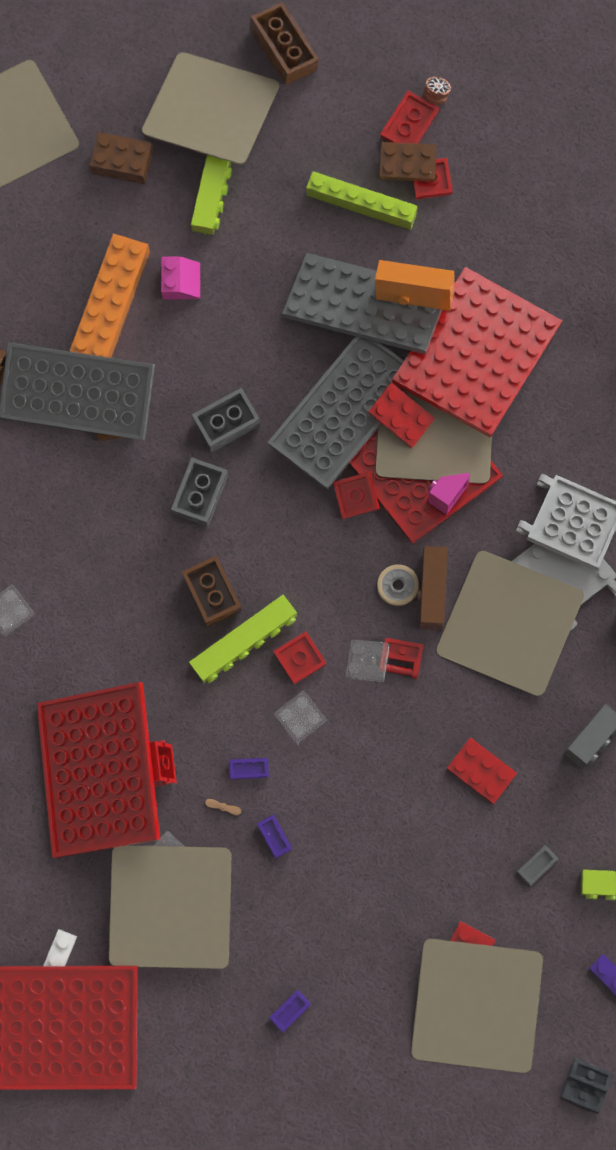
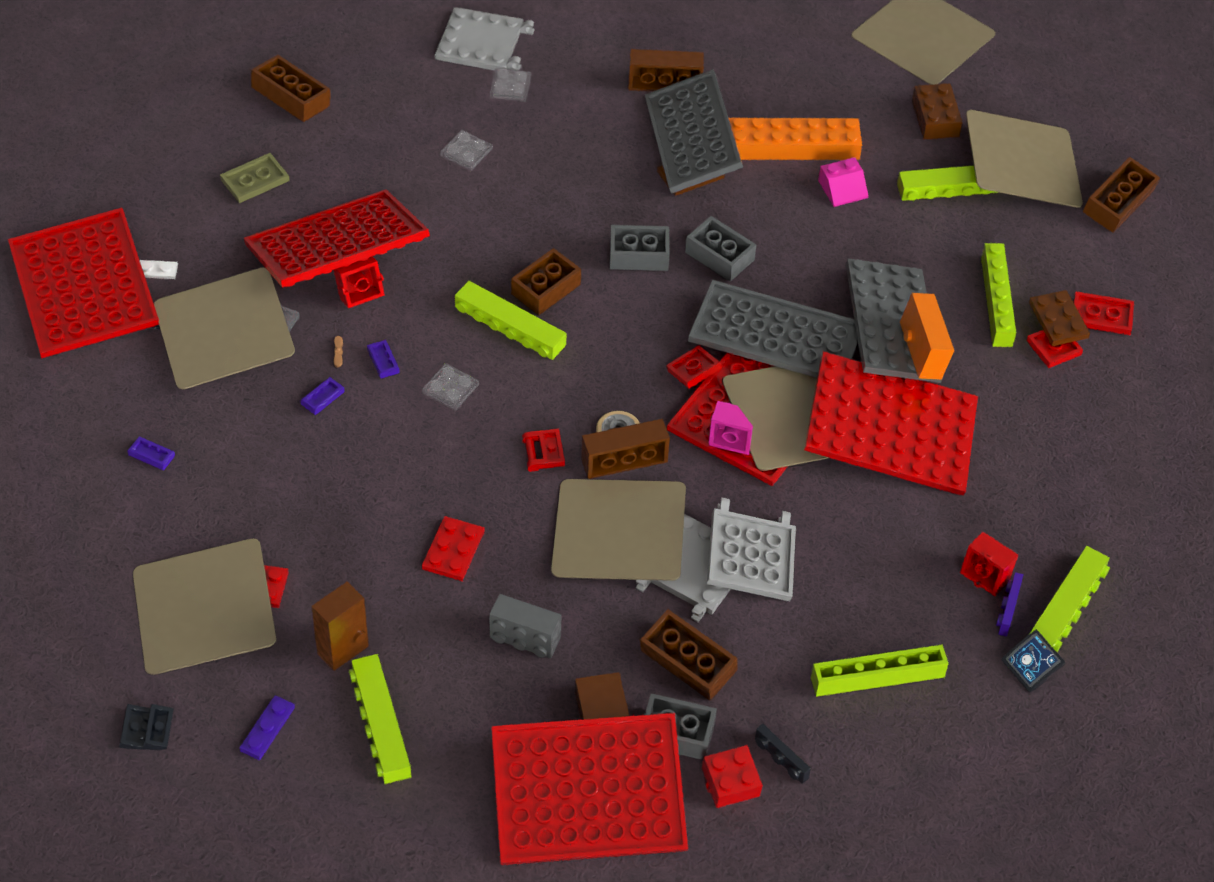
camera: 65 degrees right, 25 degrees down
(300, 657) = (510, 369): red plate -> none
(367, 660) = (529, 420): clear plate -> none
(401, 415) = (791, 374): red plate -> none
(435, 92) = (1147, 322): copper wheel -> none
(537, 865) = (378, 625): dark grey tile -> none
(560, 893) = (340, 625): none -> reddish brown brick

